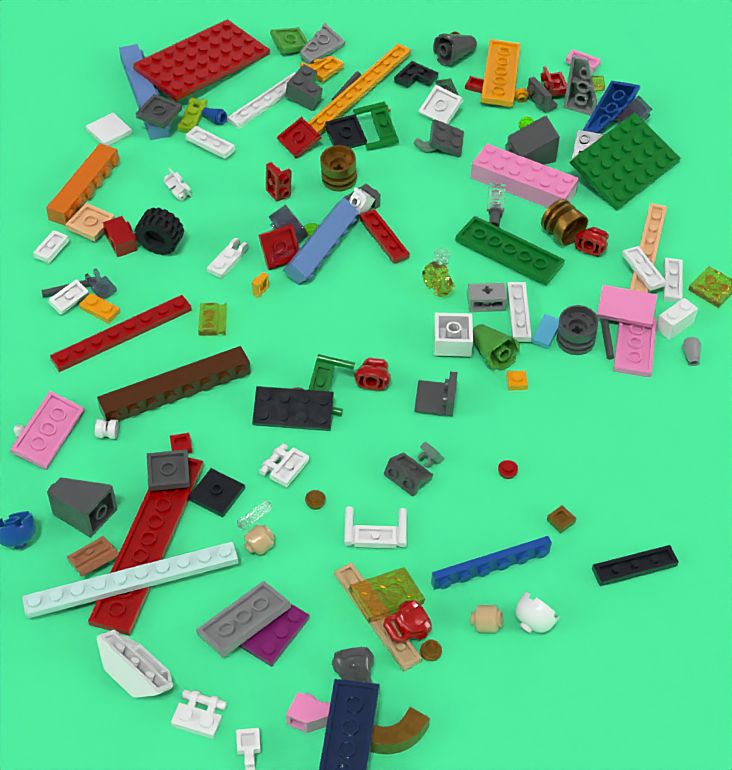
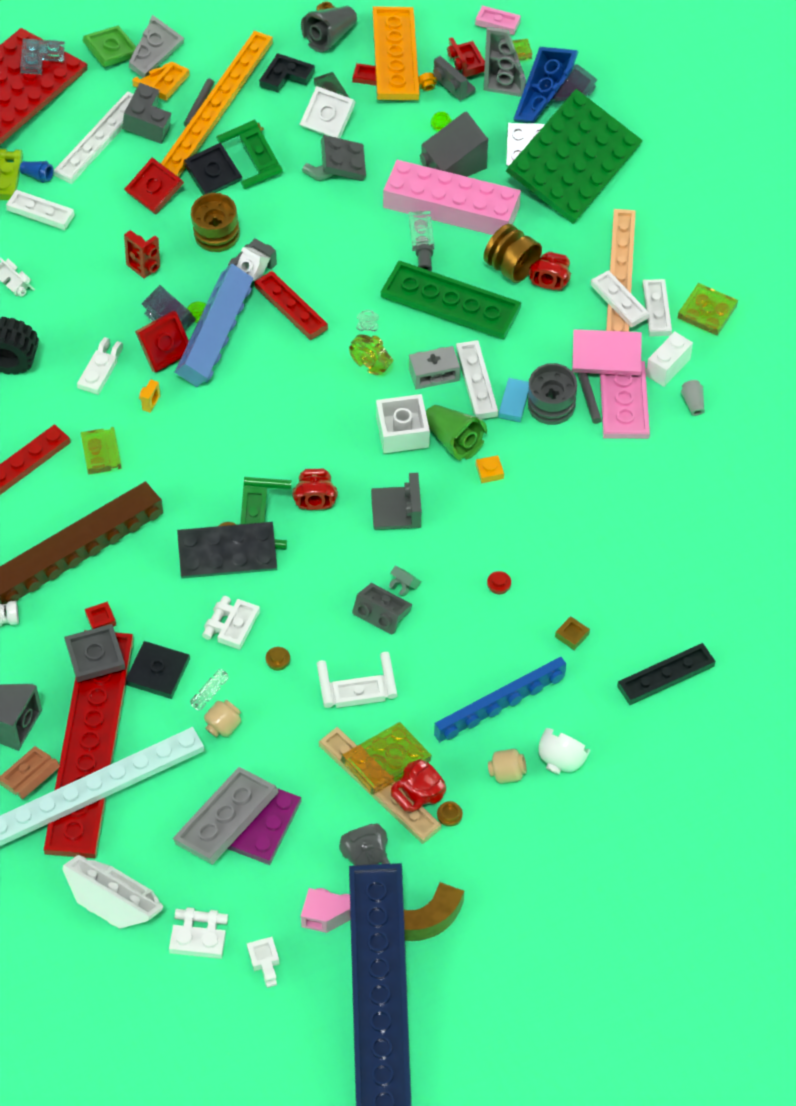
camera: 10 degrees left, 5 degrees up
(233, 34) = (36, 51): none -> clear light blue plate

